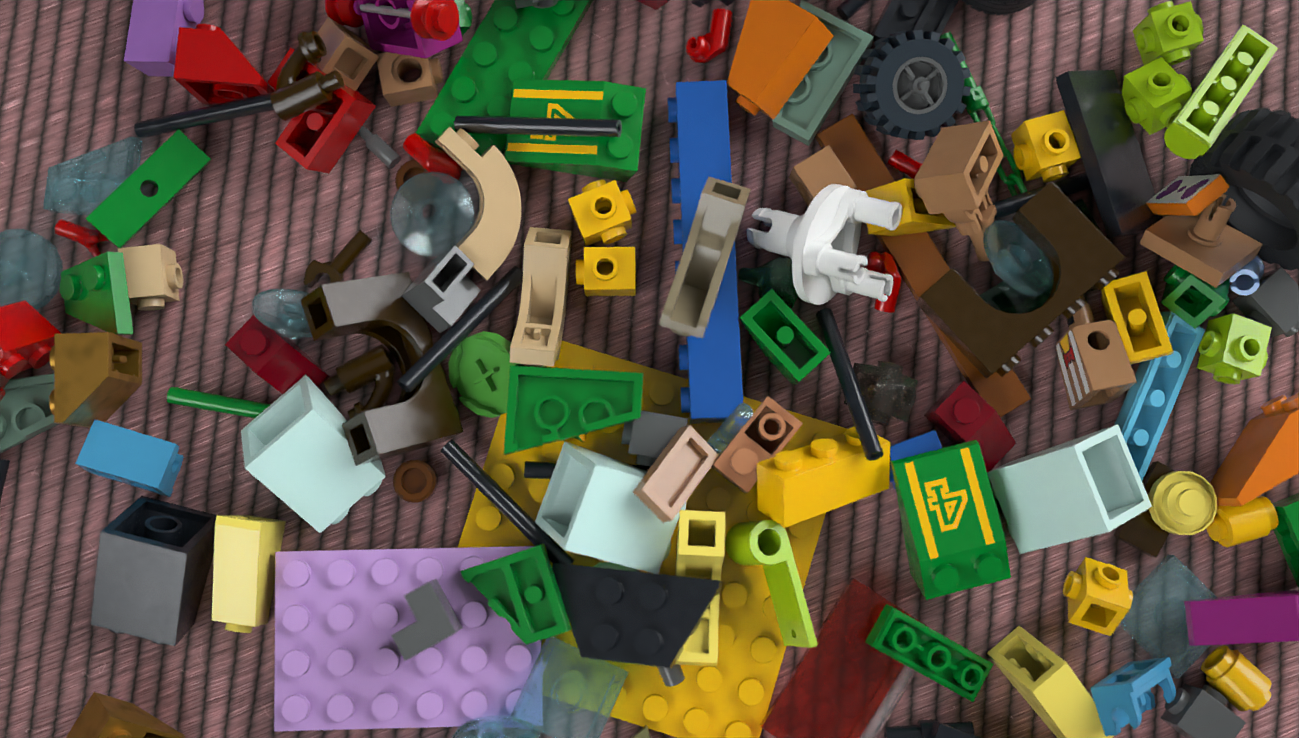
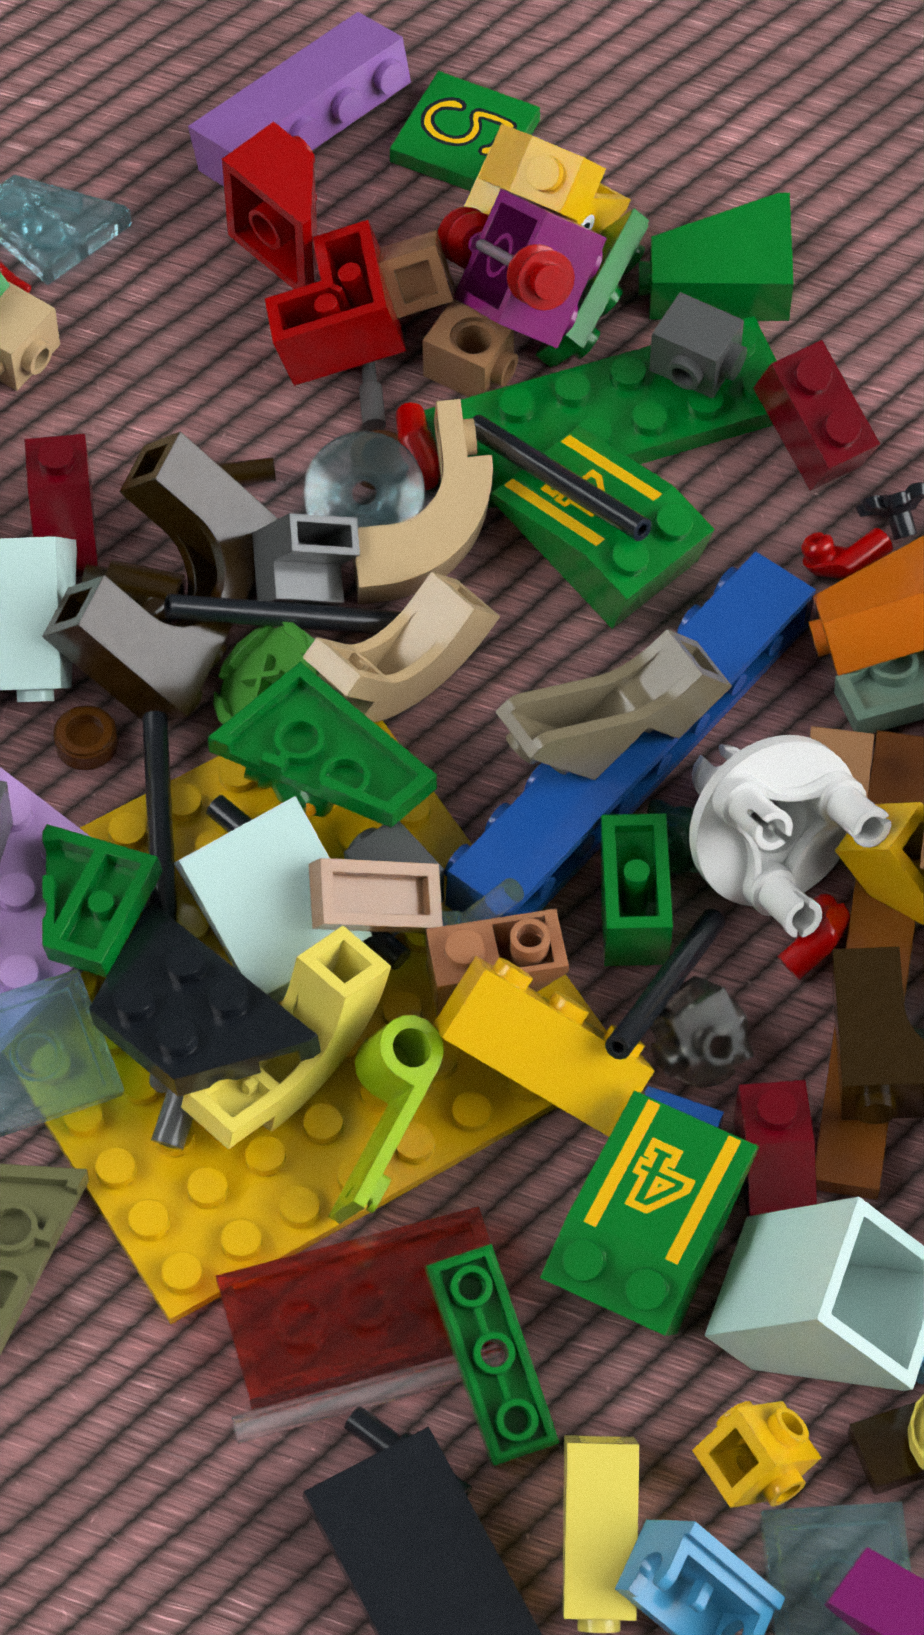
camera: 40 degrees right, 25 degrees down
(168, 169) = (128, 259): green tile -> none
(204, 116) = (223, 233): black piece -> none
(282, 312) = (112, 463): clear light blue dish -> none
(300, 96) = (339, 260): dark brown plant -> none
(597, 226) = (550, 621): yellow brick -> none
(607, 271) = (491, 676): yellow brick -> none

